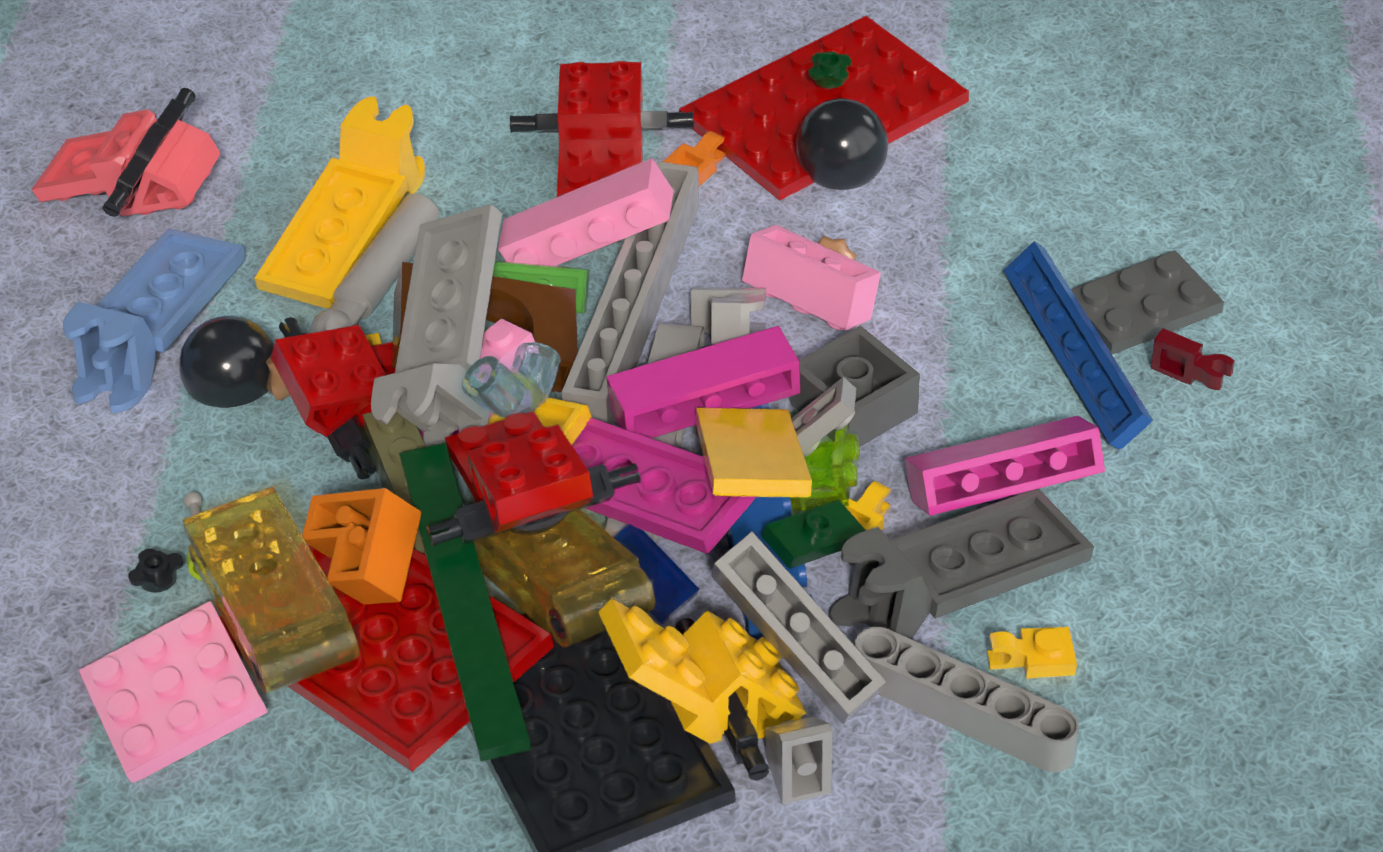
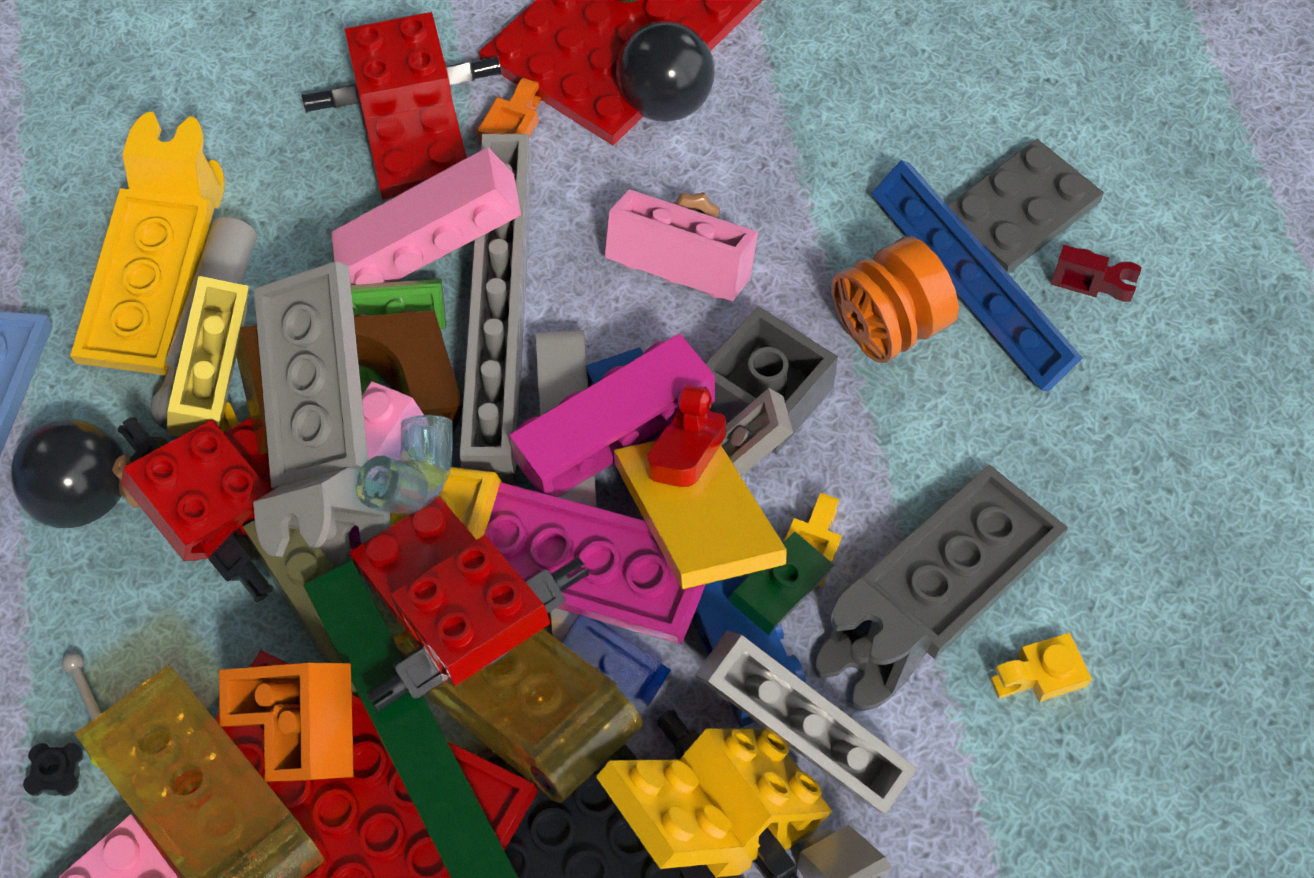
camera: 15 degrees left, 15 degrees up
(371, 279) = (207, 355): none -> light yellow brick
(726, 311) = (615, 305): light grey piece -> none
(764, 408) = (688, 442): none -> red piece
(831, 471) = (774, 492): clear neon green bracket -> none
(971, 700) = (1016, 744): light grey beam -> none
(990, 344) = (895, 299): none -> orange wheel
(1004, 465) = (949, 445): dark pink brick -> none

